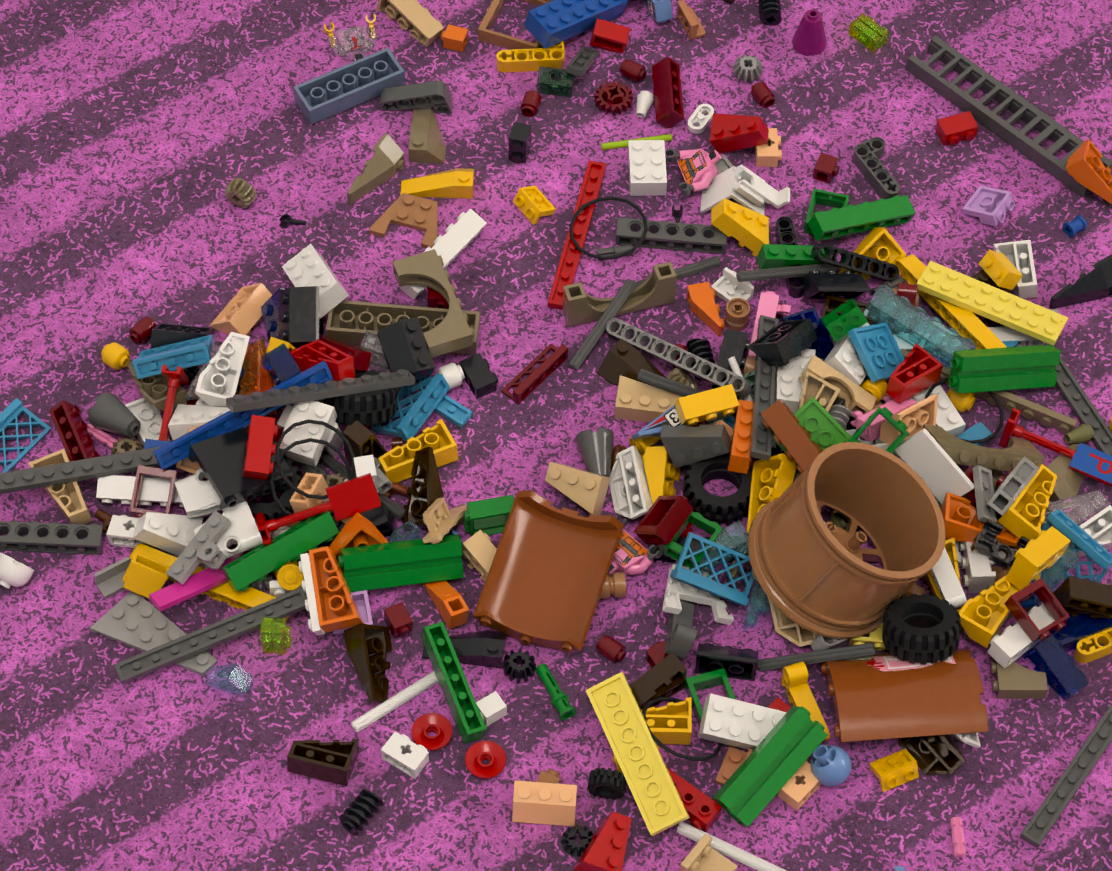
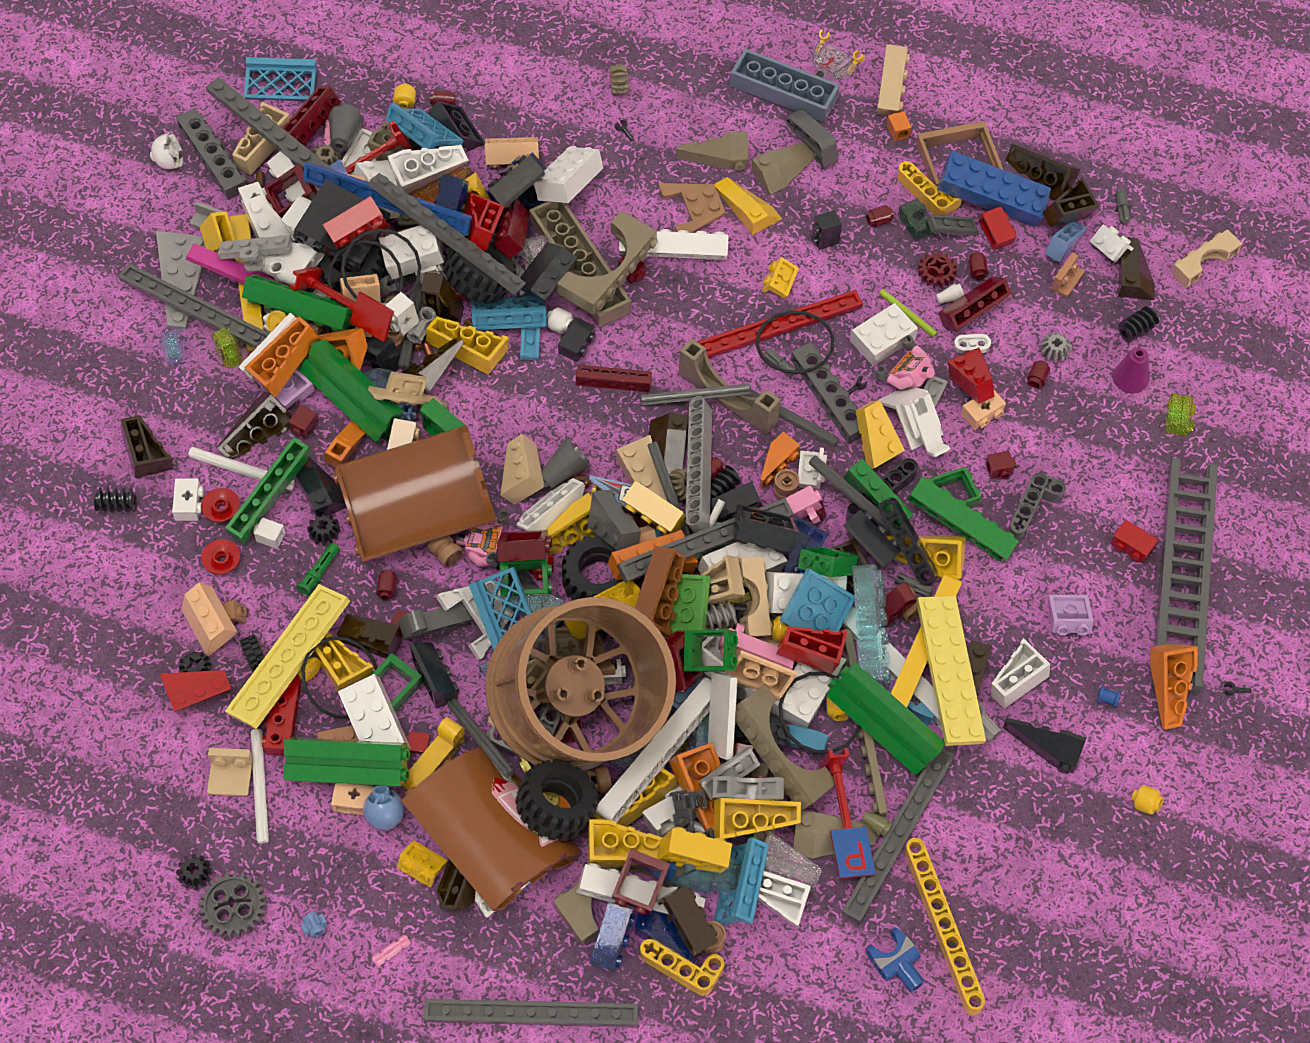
camera: 55 degrees right, 5 degrees up
(1000, 269) = (995, 658): yellow brick -> none

